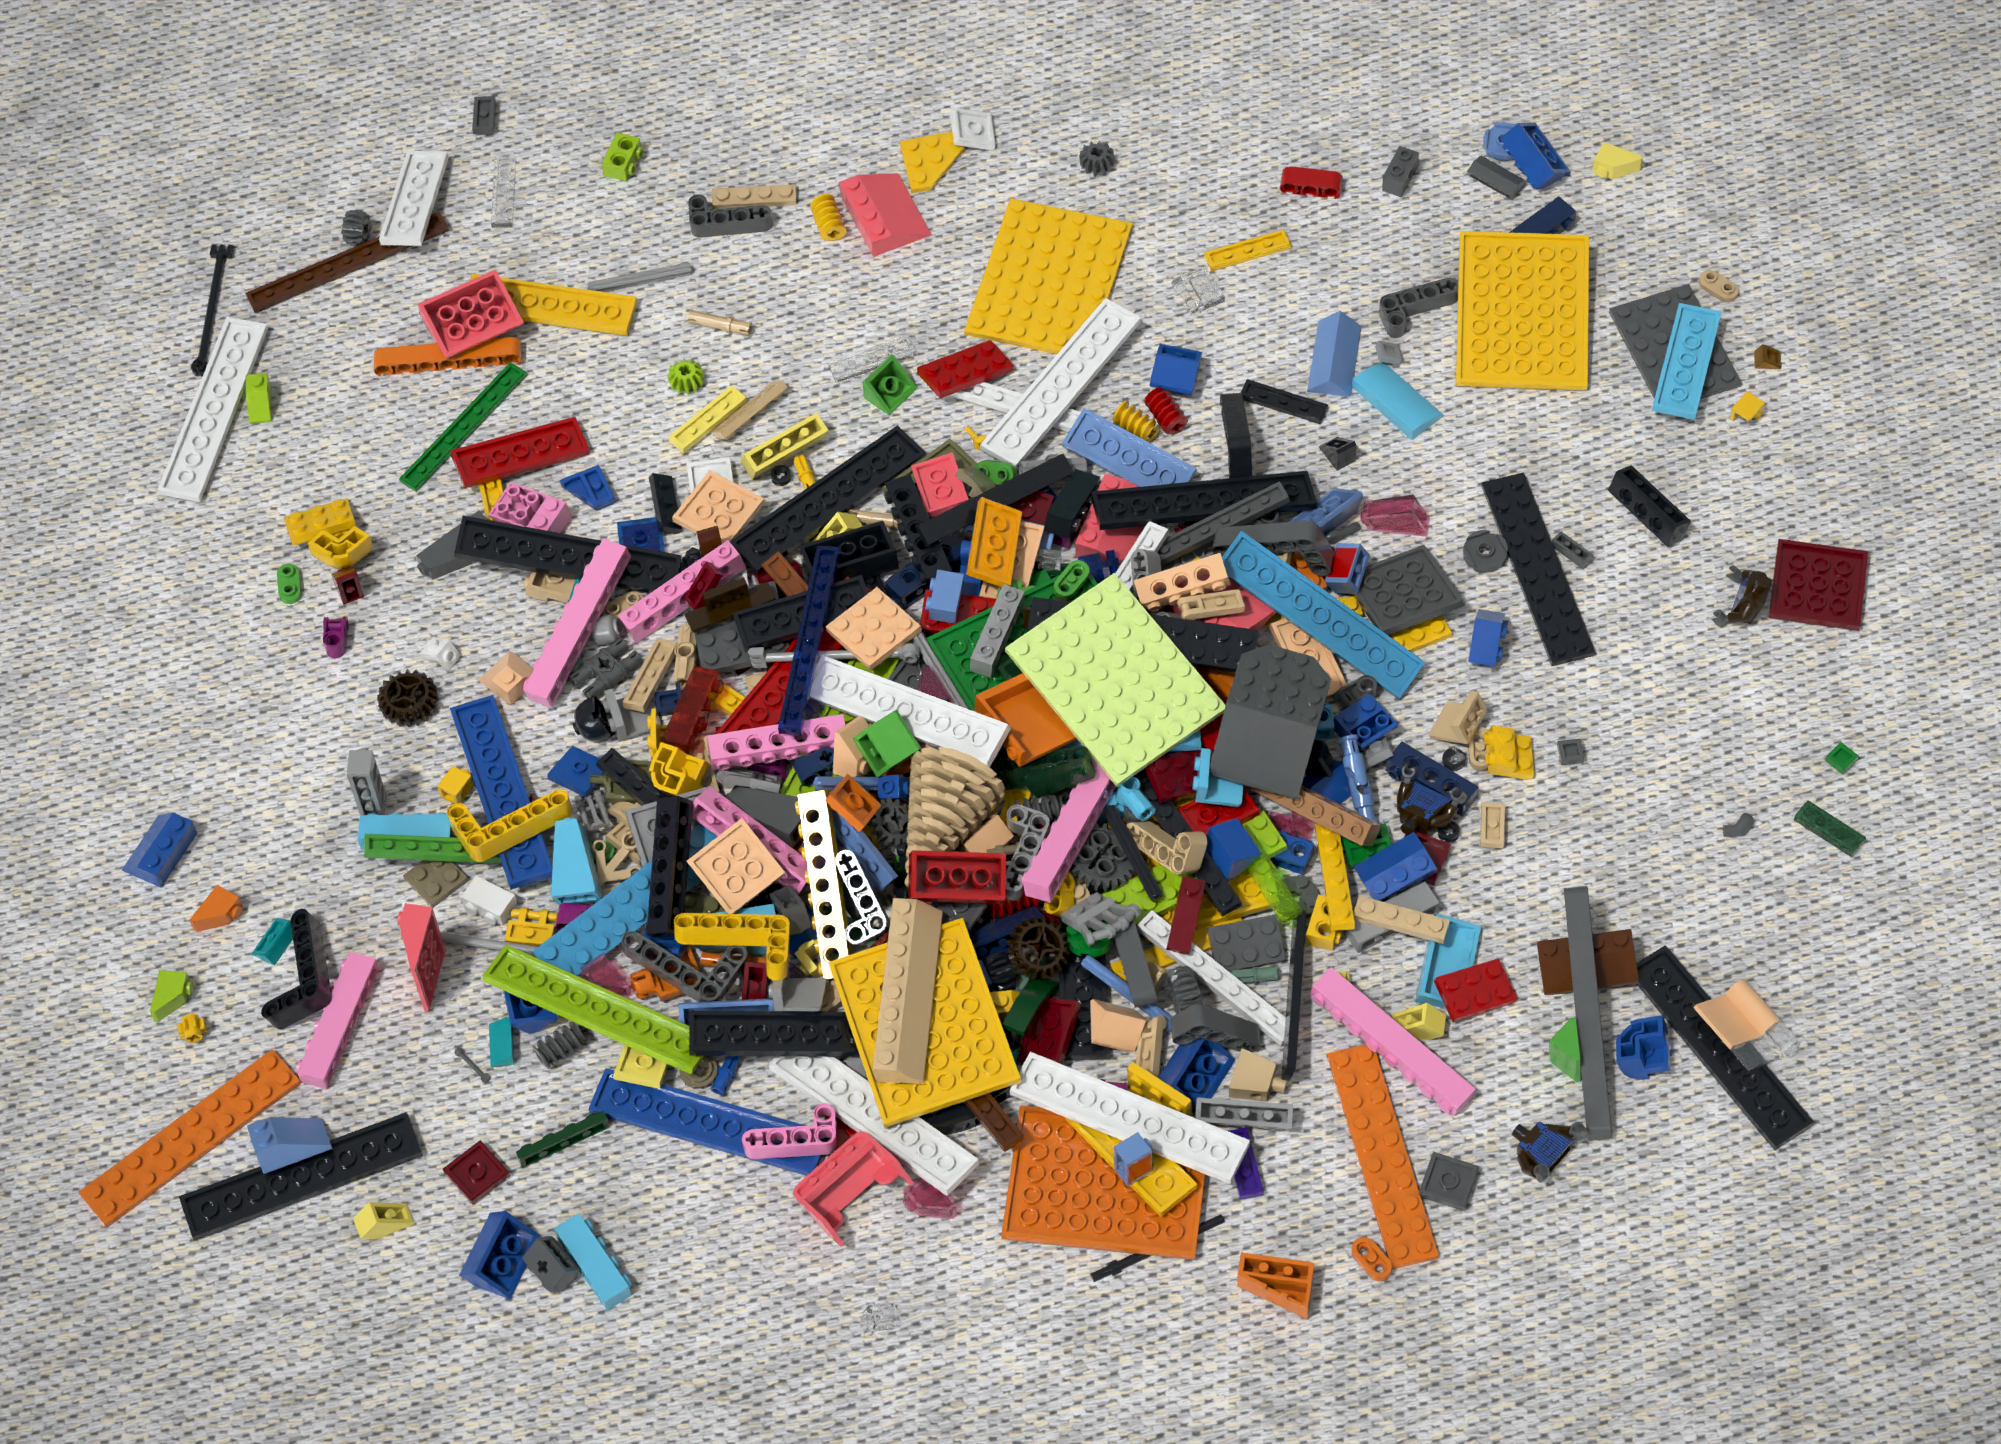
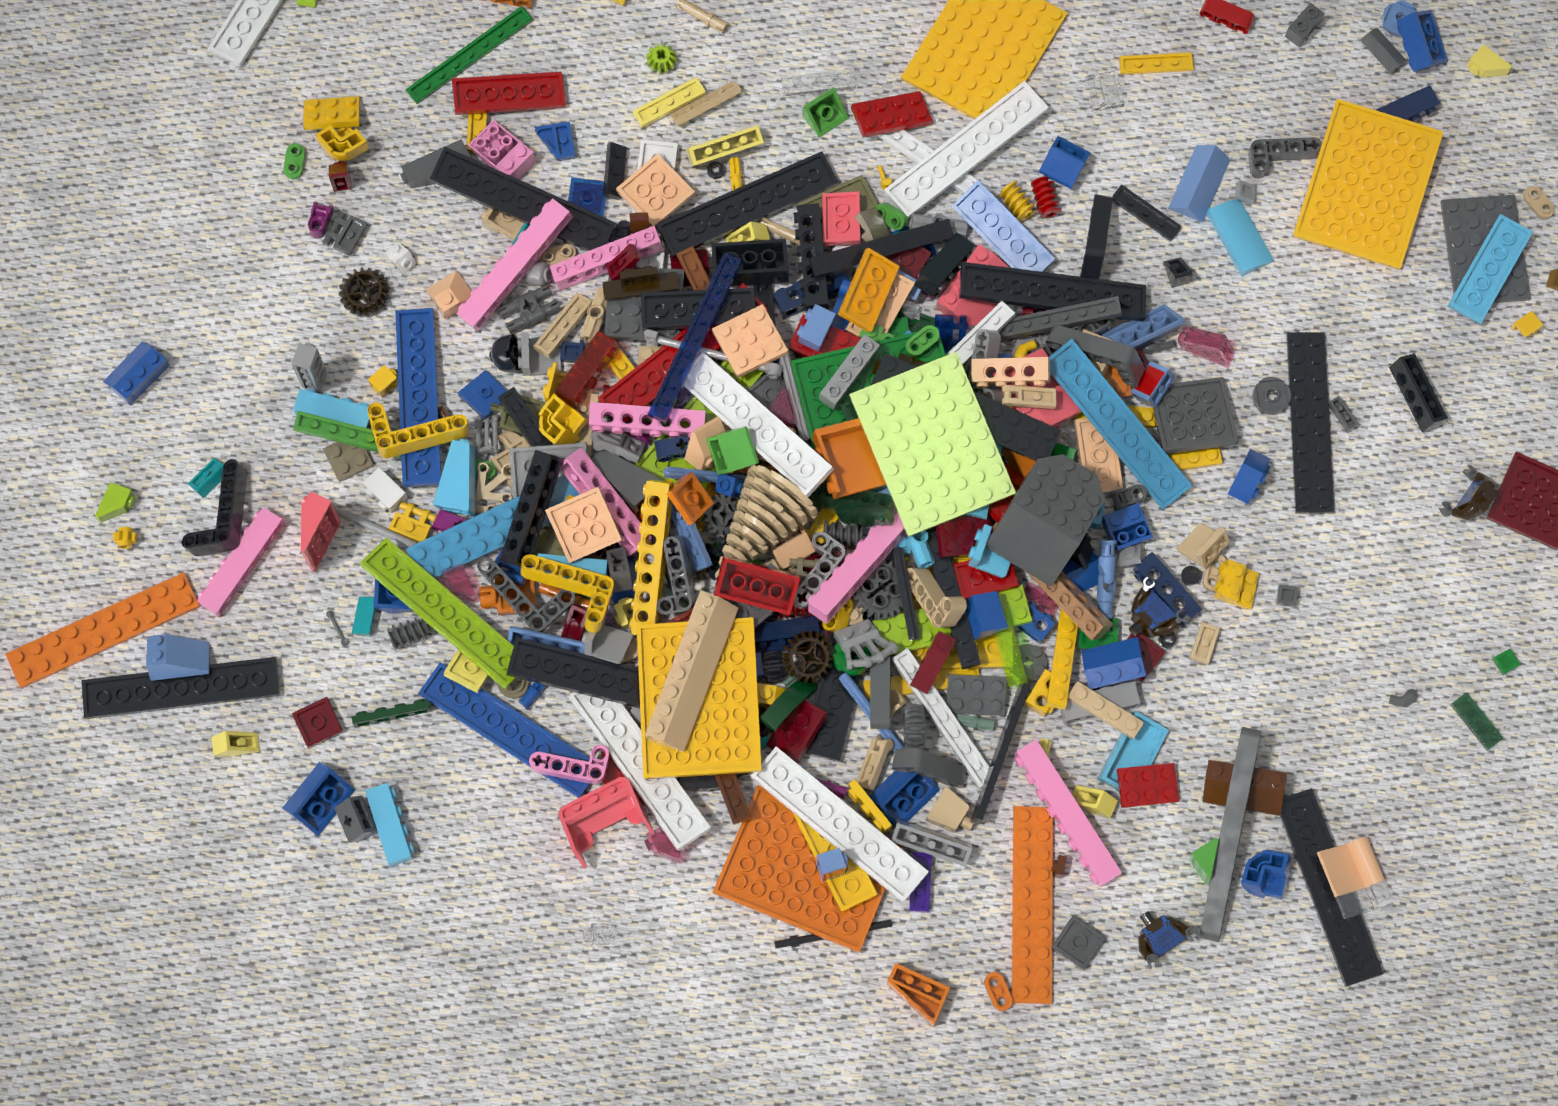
camera: 10 degrees right, 15 degrees up
(217, 910) = (168, 439): orange slope -> none
(374, 645) = (348, 237): none -> dark grey plate
(1115, 1026) = (851, 737): light nougat slope -> none
(1400, 1104) = (1058, 866): none -> reddish brown plate

